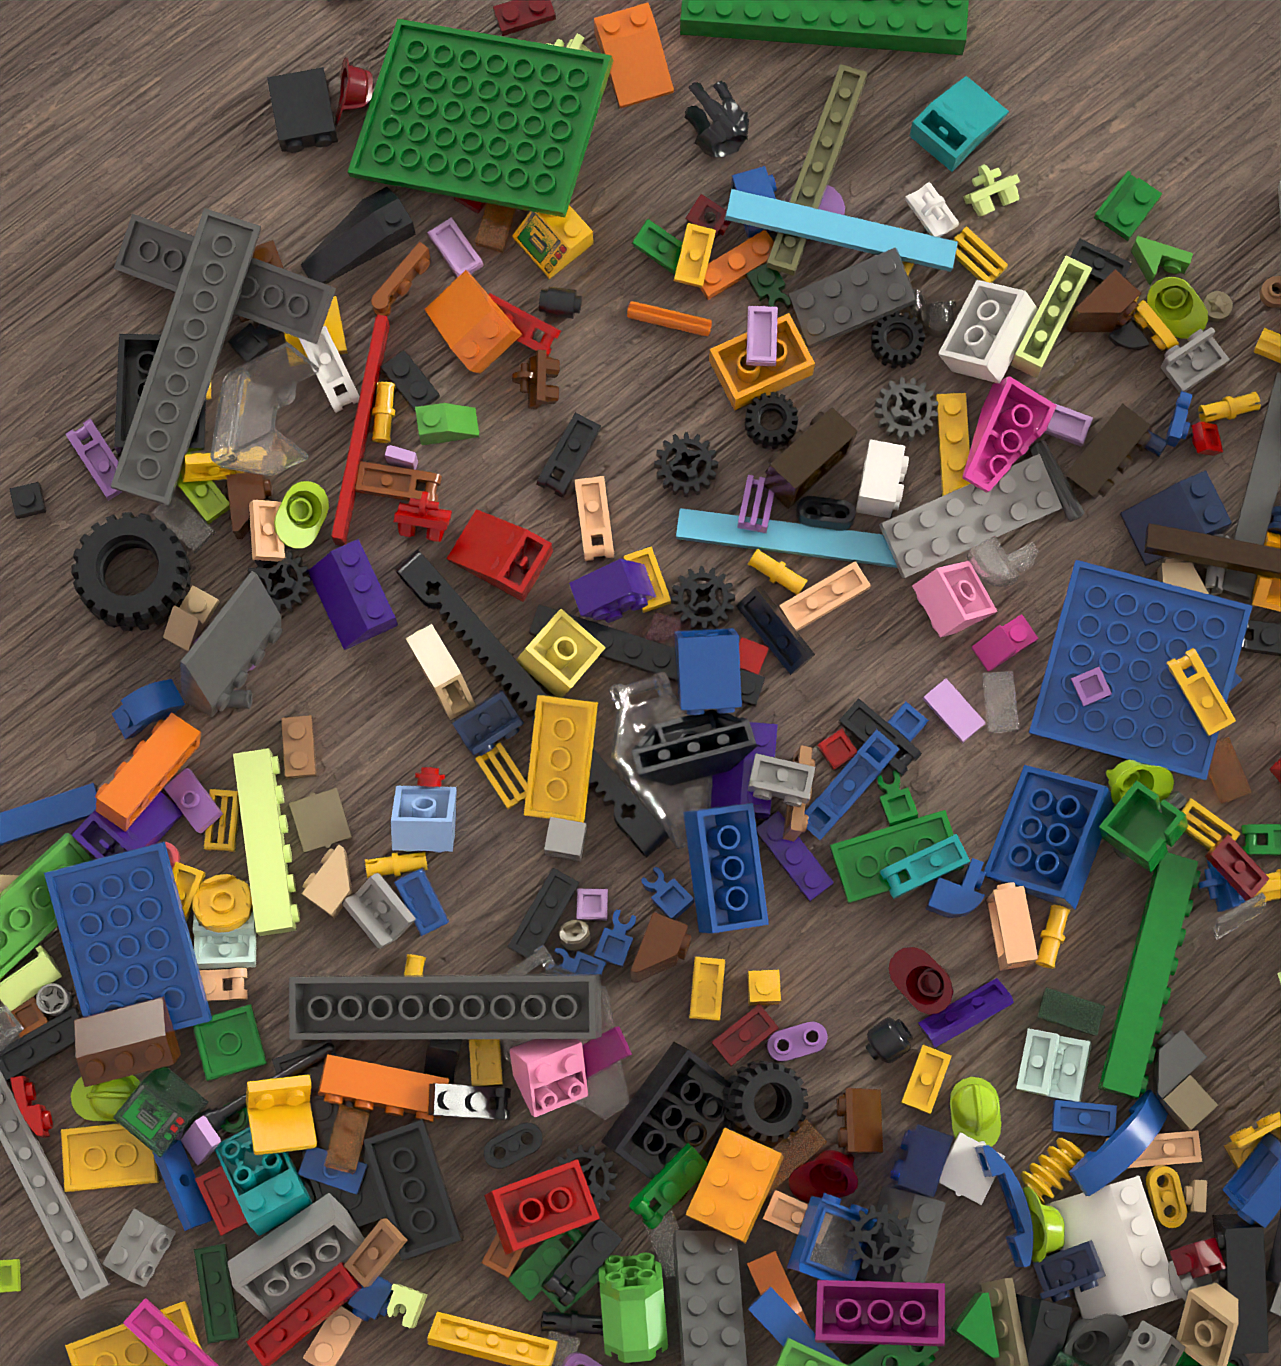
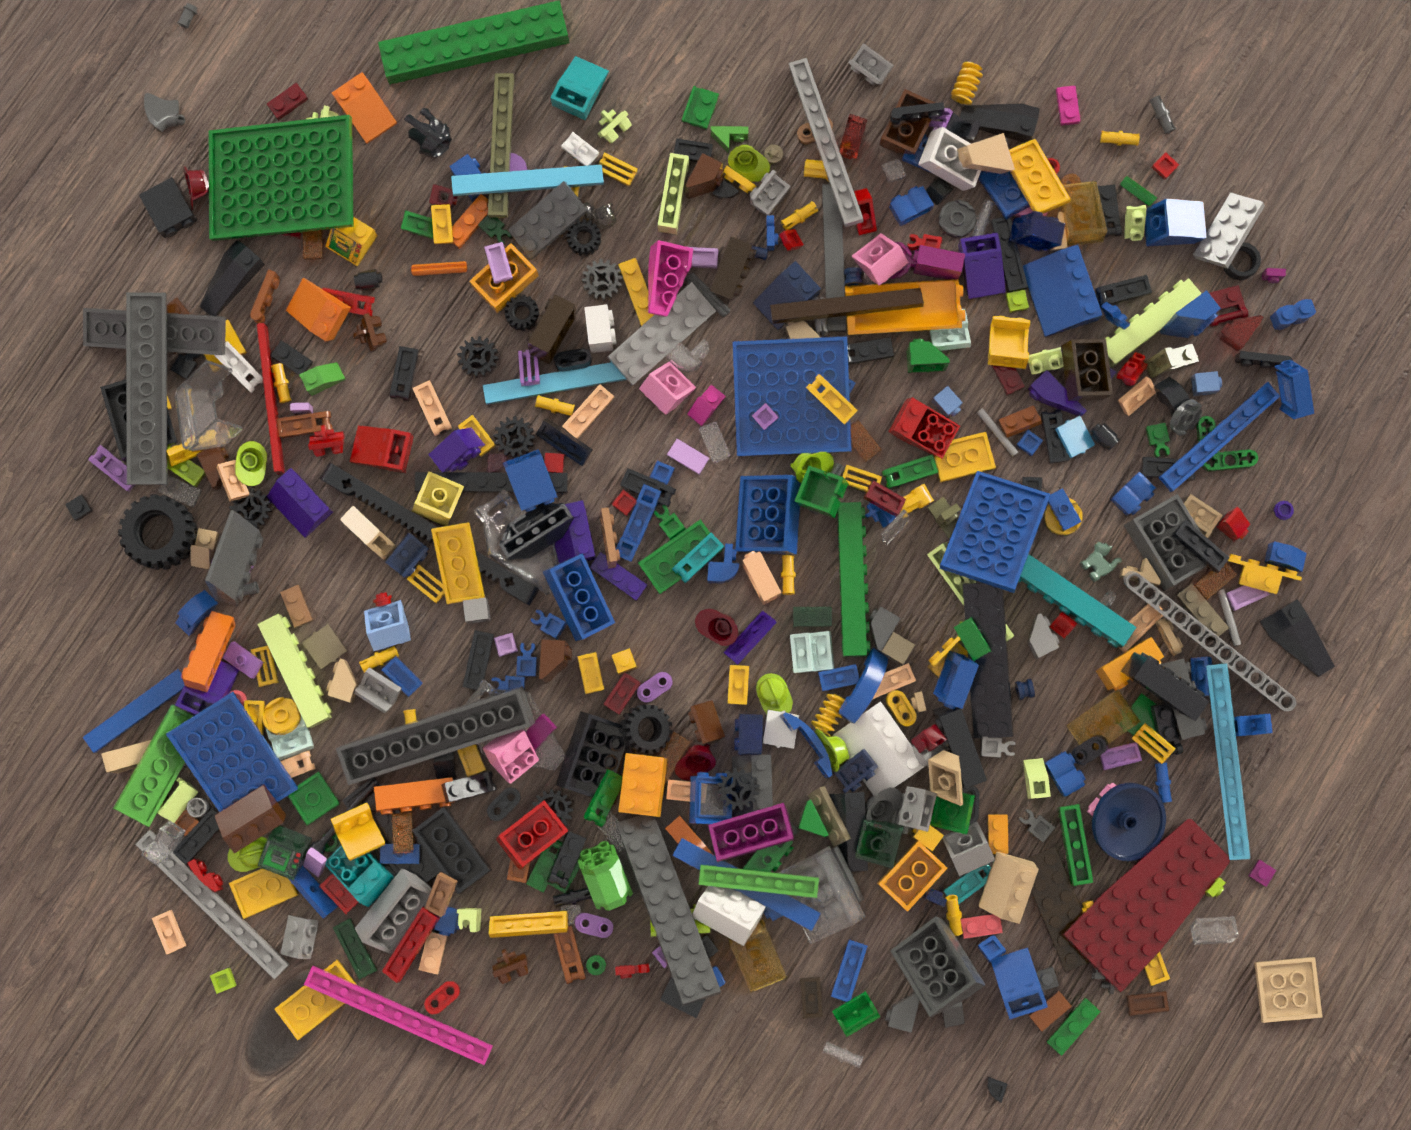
camera: 15 degrees left, 5 degrees up
(455, 248) = (292, 265): lavender tile -> none
(574, 935) = (501, 666): dark tan tile -> none
(781, 779) = (594, 533): light grey bracket -> none
(888, 1040) = (708, 668): black head -> none
(988, 331) = (637, 215): white brick -> none

